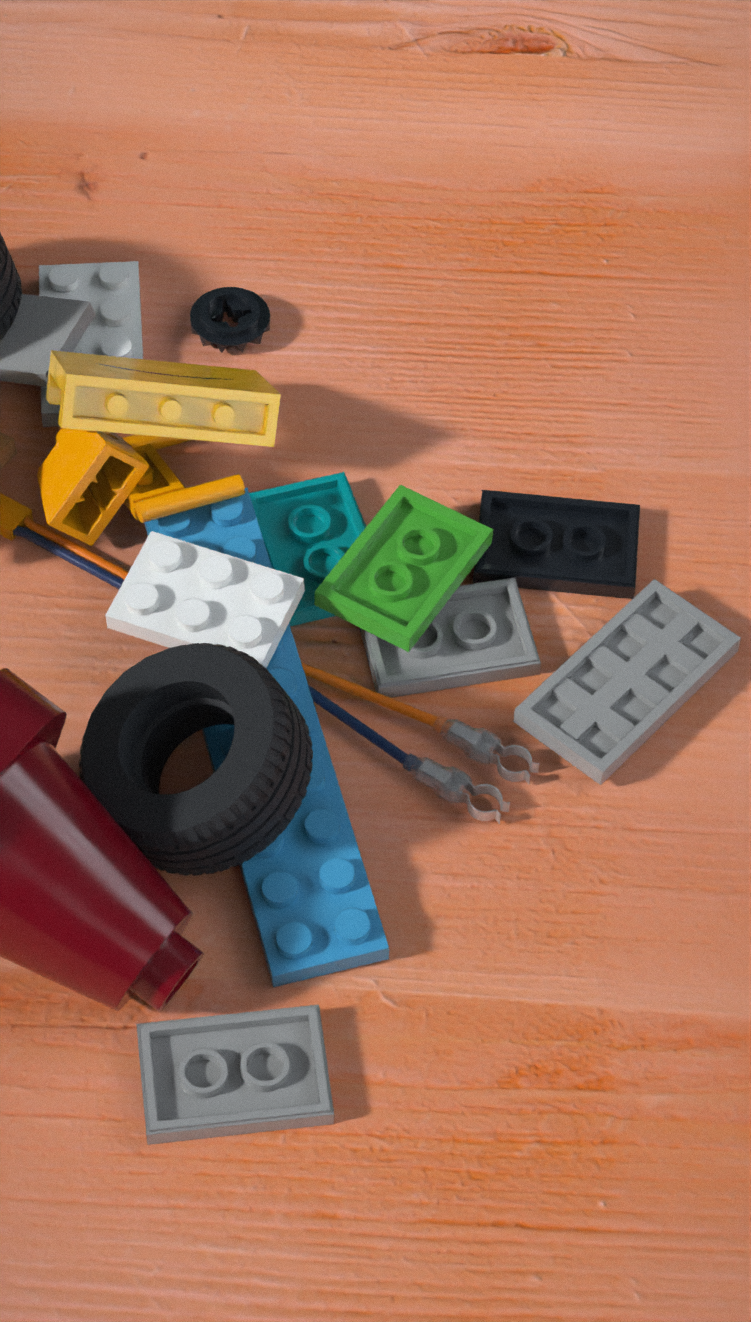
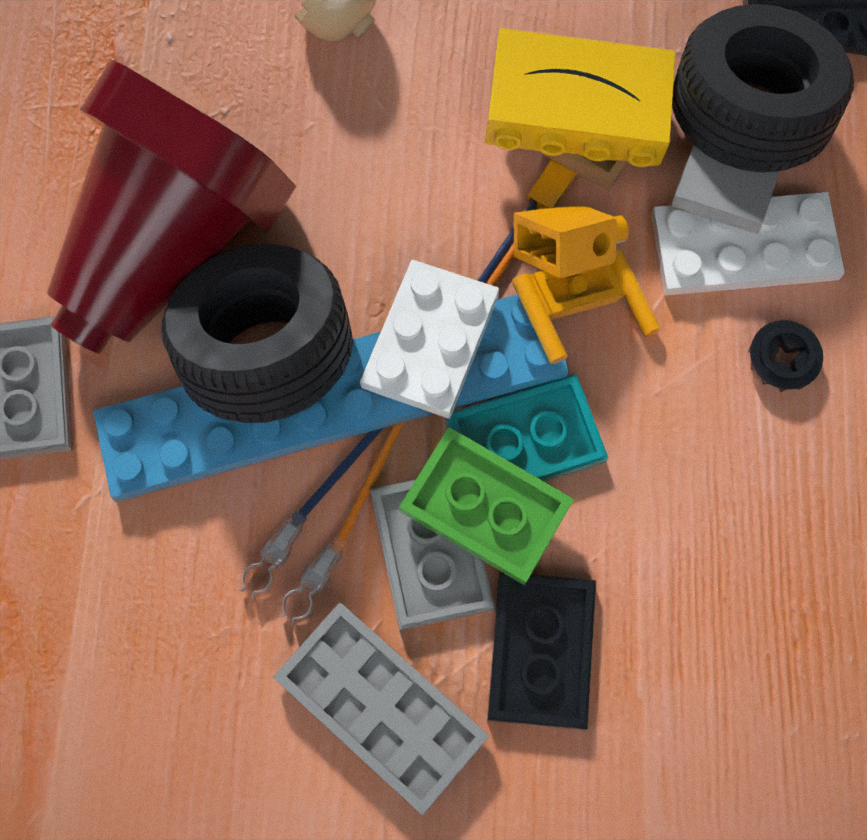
camera: 90 degrees right, 20 degrees up
(162, 399) = (642, 283): yellow panel -> none

